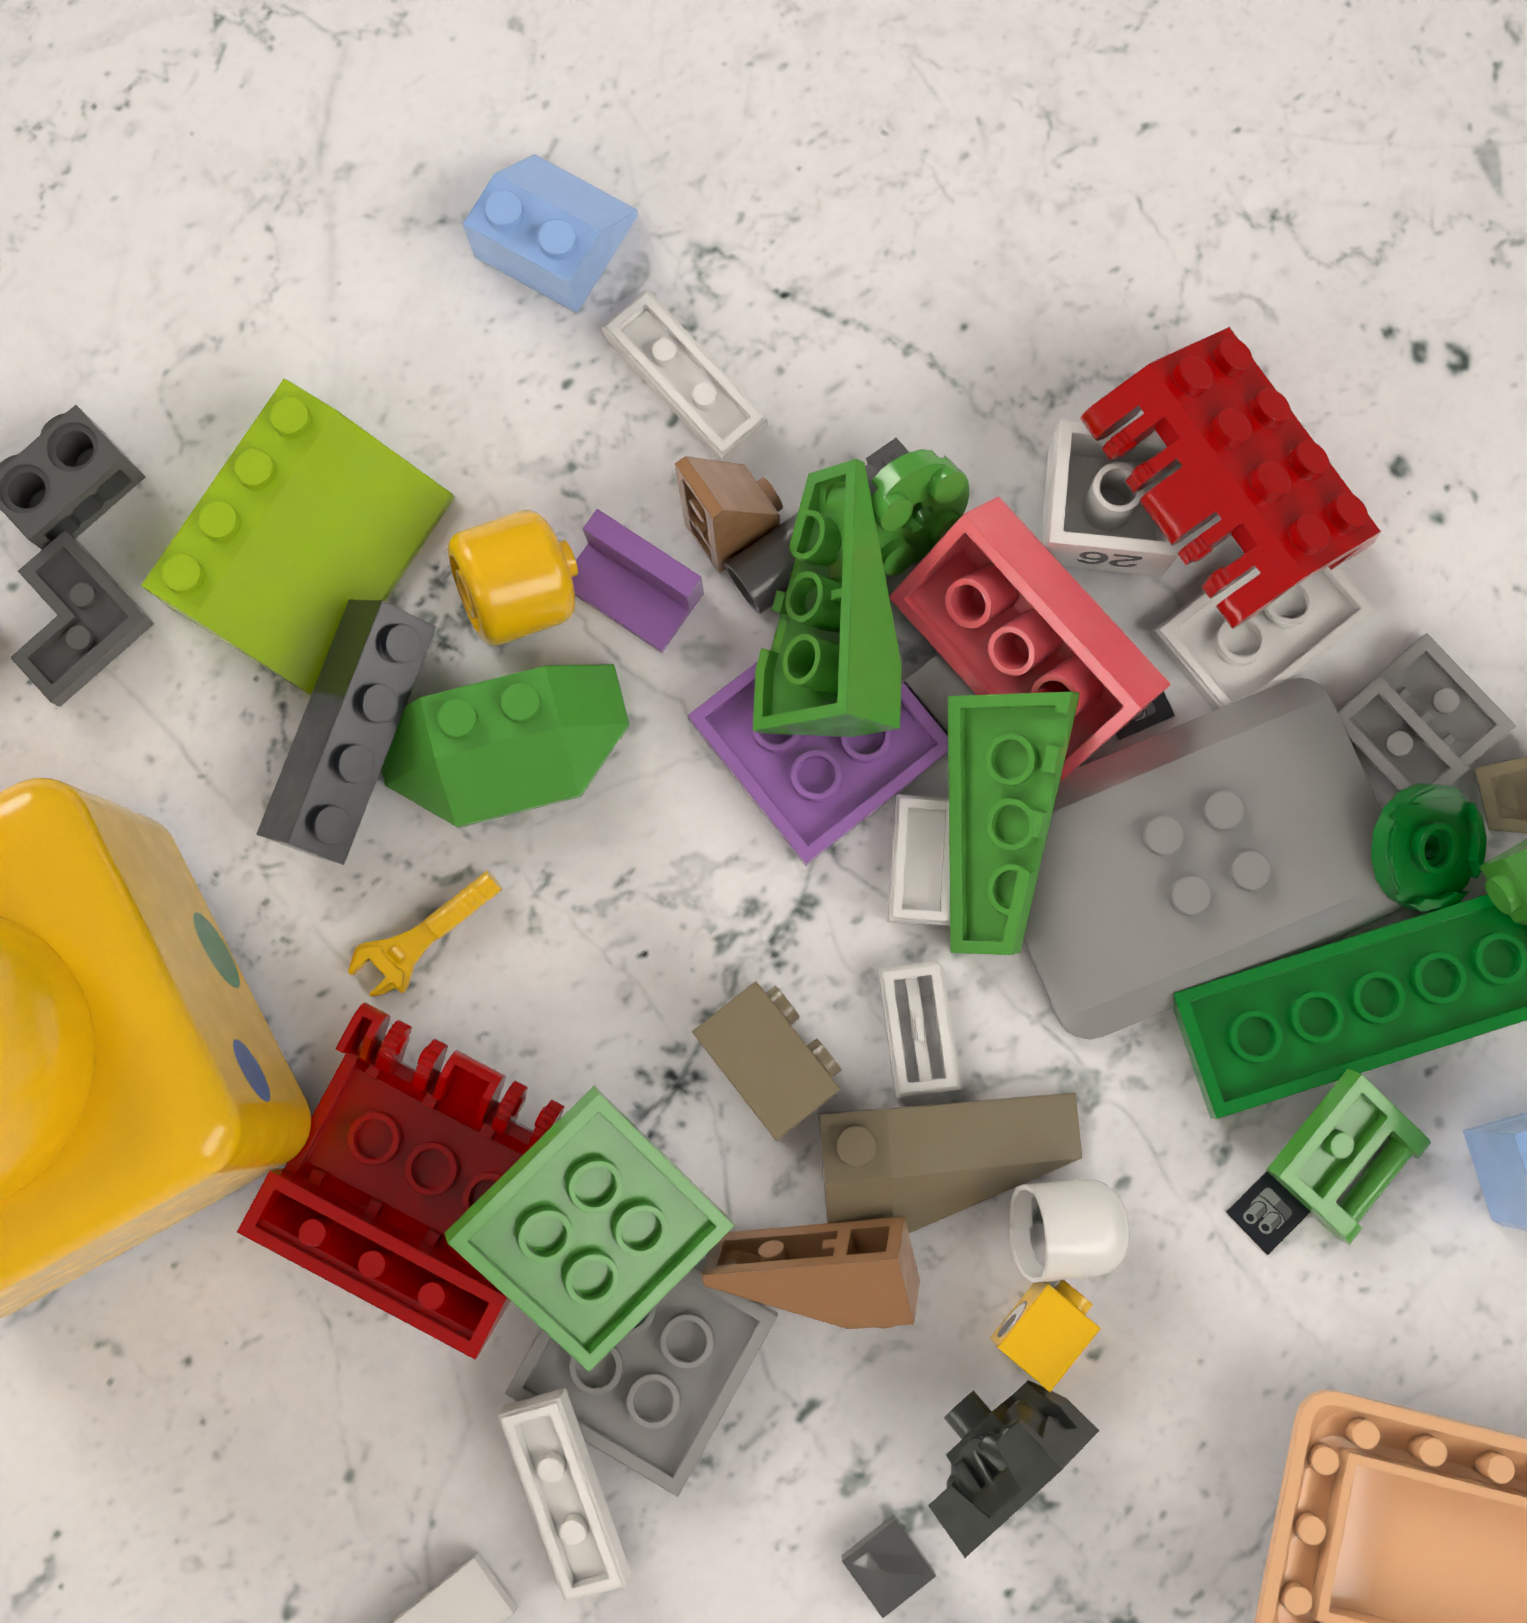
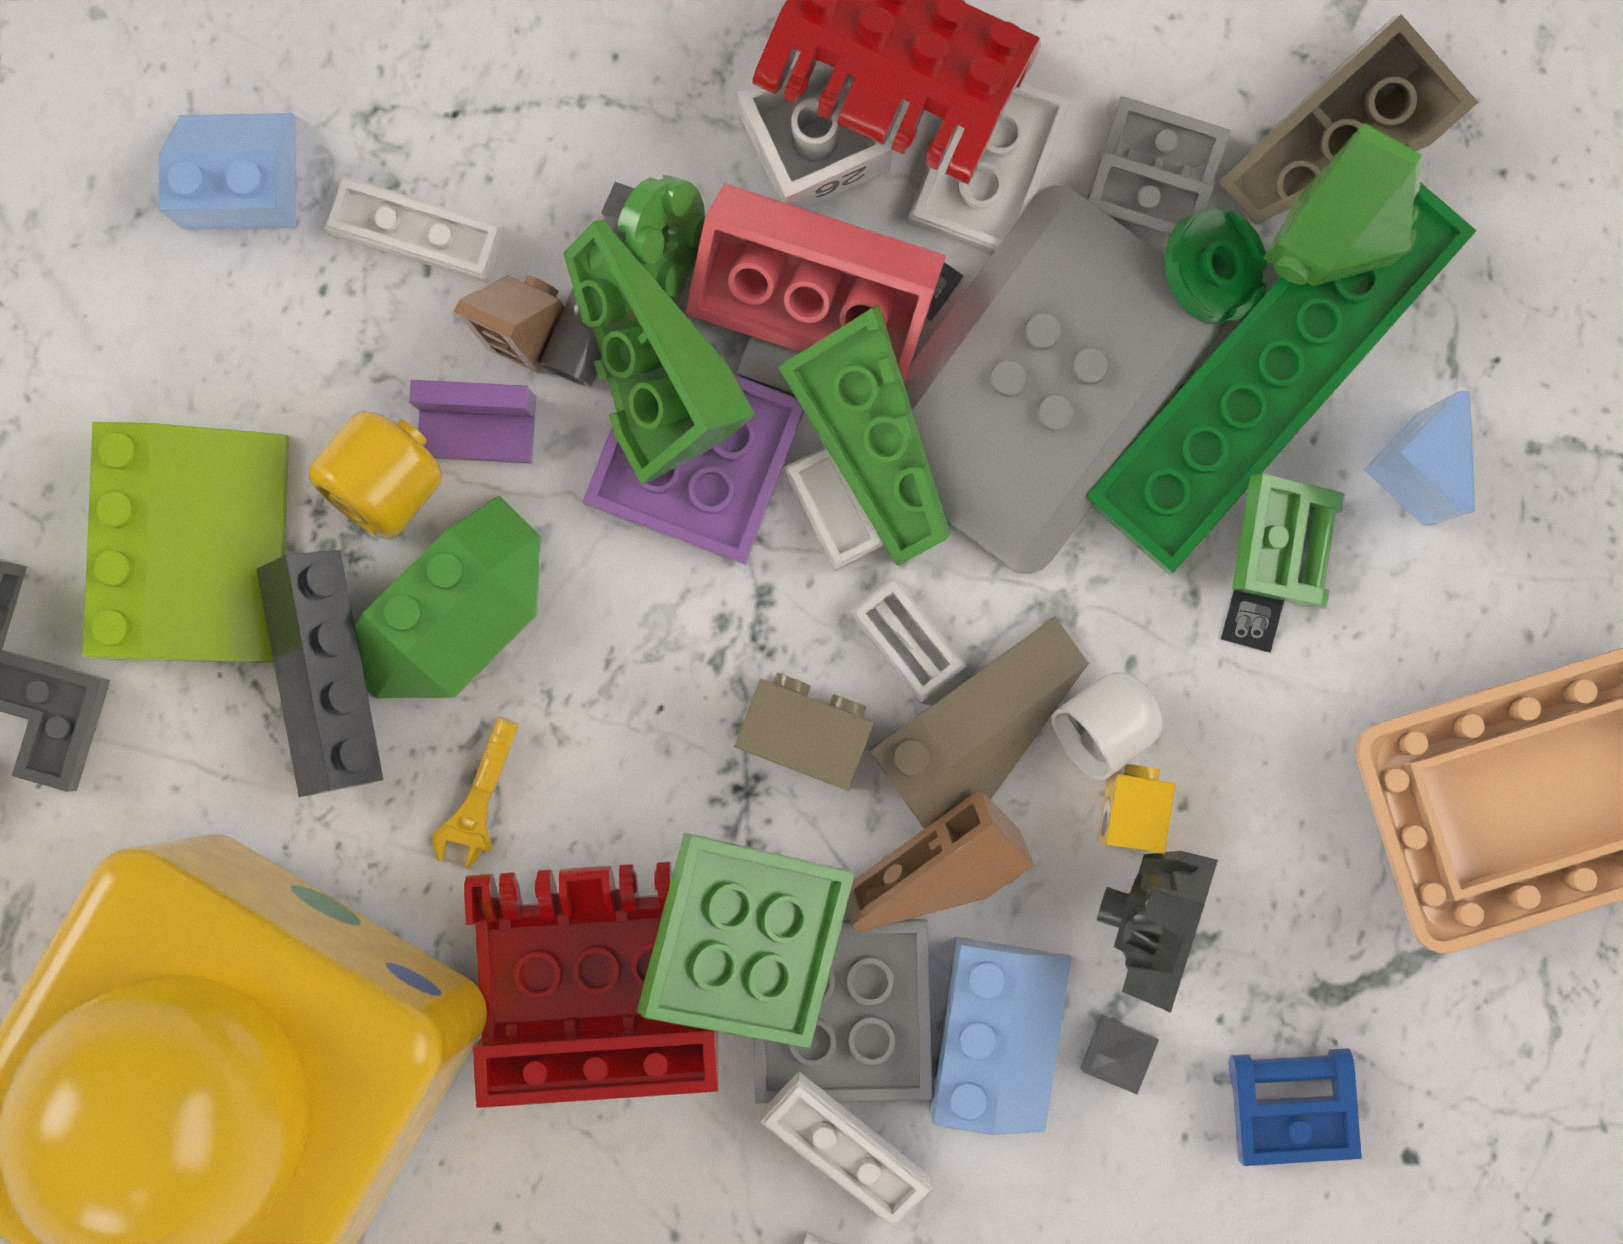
camera: 30 degrees left, 5 degrees up
(778, 1476) = (999, 1038): none -> light blue slope

